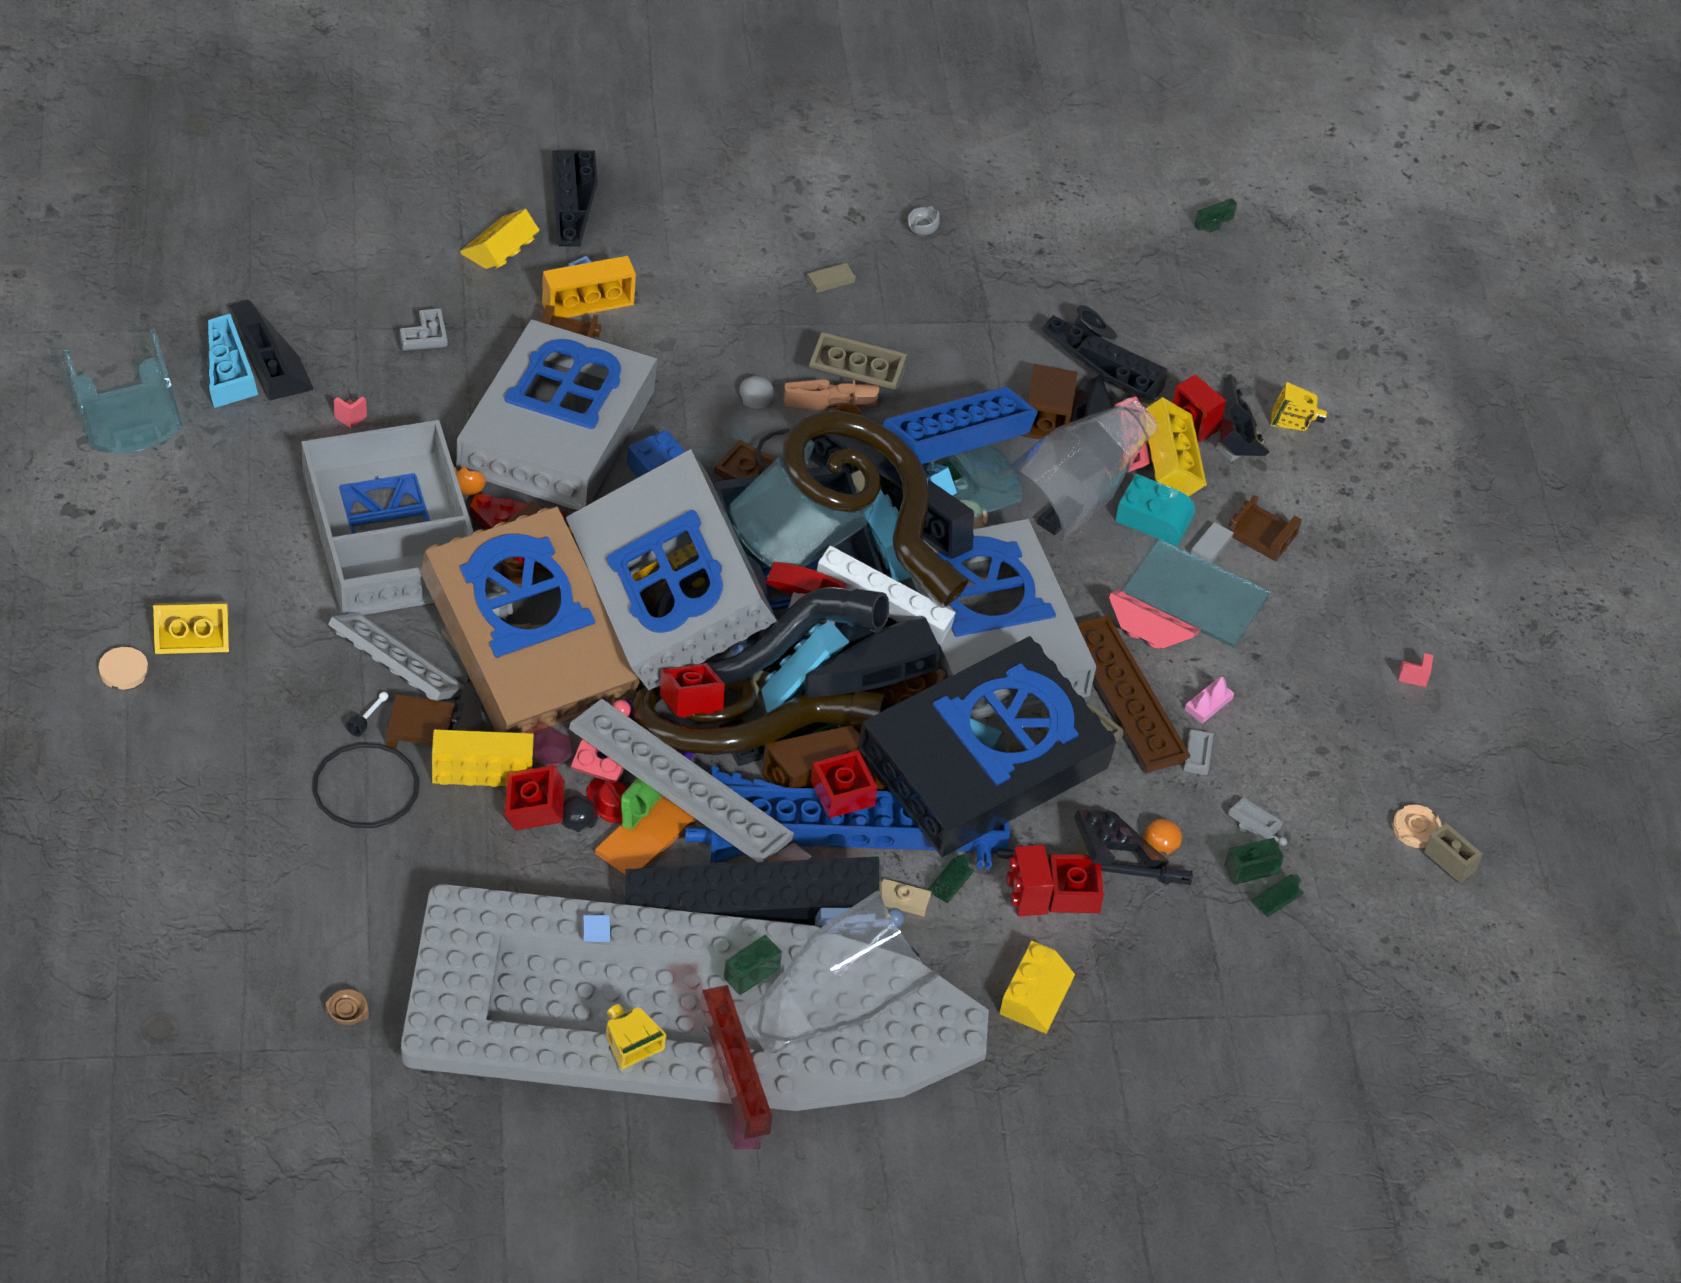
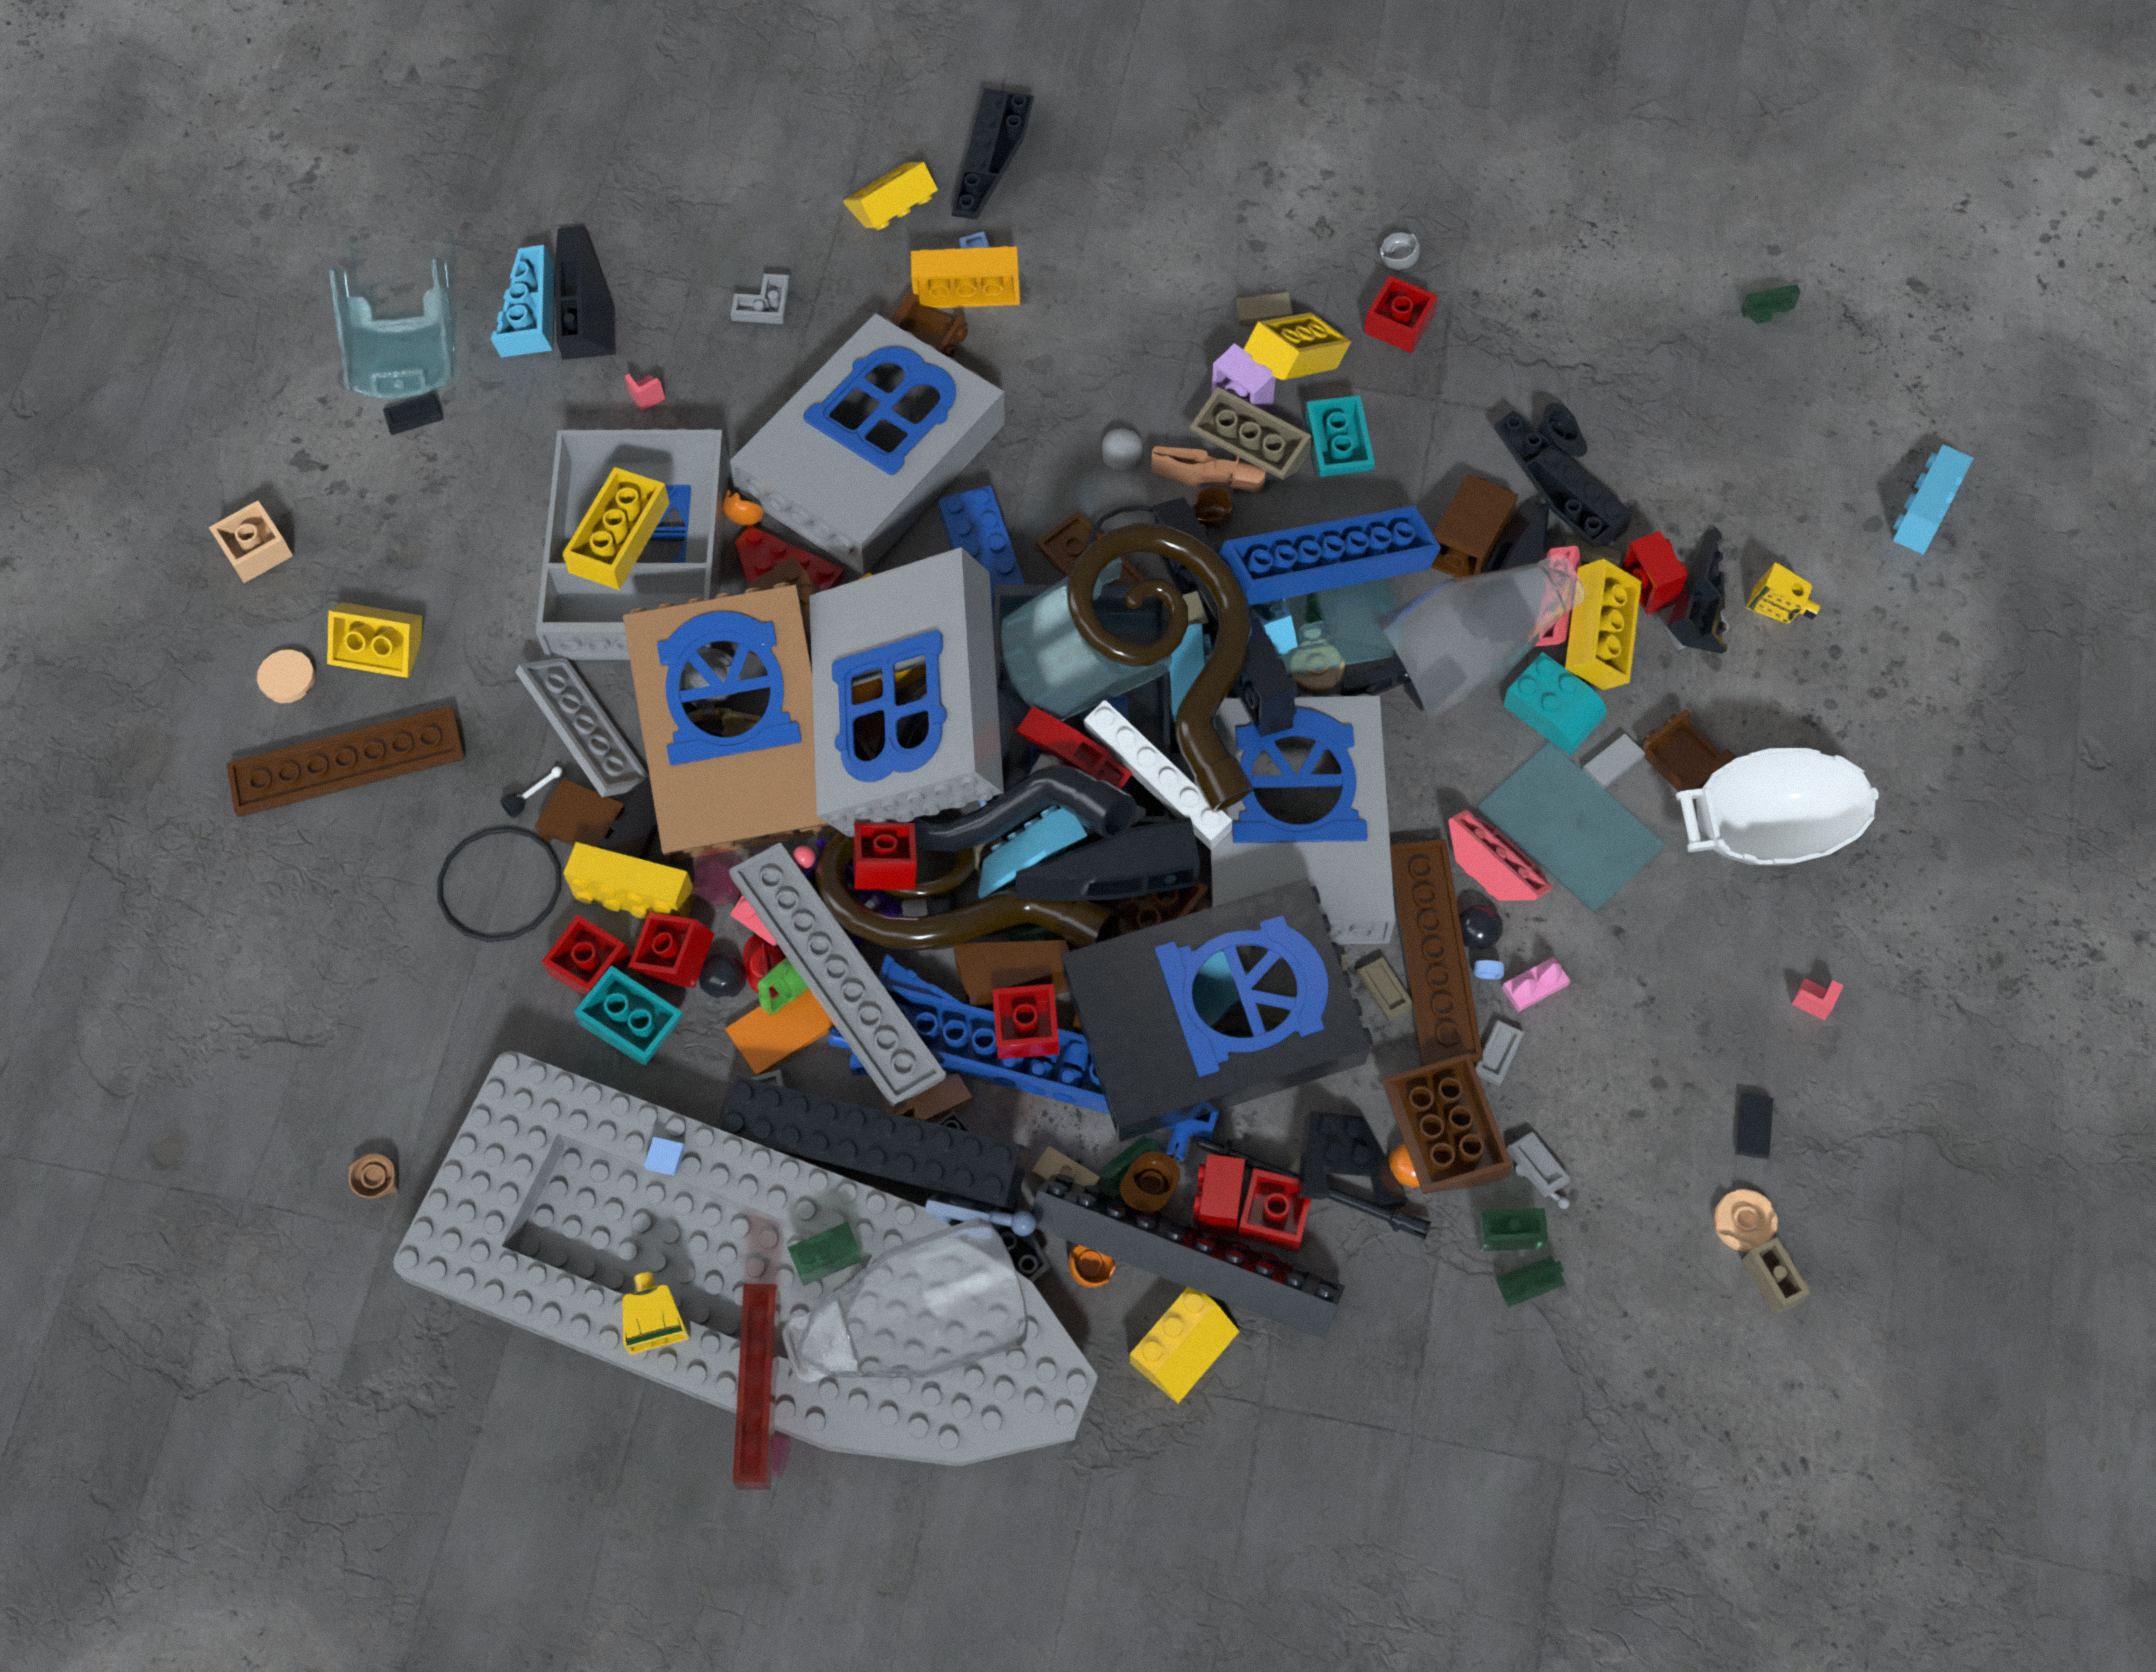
camera: 25 degrees right, 15 degrees up
(57, 571) = (251, 541): none -> light nougat brick
(155, 460) = (412, 414): none -> black tile
(201, 719) = (344, 761): none -> reddish brown plate
(385, 498) = (616, 528): none -> yellow brick
(466, 819) = (584, 956): none -> red brick
(517, 852) = (627, 1016): none -> teal brick
(839, 321) = (1244, 378): none -> lavender brick
(873, 293) = (1296, 346): none -> yellow brick
(927, 353) = (1338, 436): none -> teal brick
(941, 263) = (1400, 314): none -> red brick
(947, 949) = (1090, 1267): none -> orange hair
(974, 881) = (1150, 1181): none -> reddish brown piece
(1024, 924) = (1188, 1255): none -> black brick
(1026, 510) = (1376, 681): none -> black hinge
(1155, 669) = (1481, 926): none -> black hair
(1172, 696) = (1488, 969): none -> light blue tile
(1184, 800) = (1447, 1125): none -> reddish brown slope
(1347, 542) = (1779, 807): none -> white windscreen
(1381, 328) = (1933, 498): none -> medium azure wedge
(1401, 763) = (1754, 1126): none -> black tile

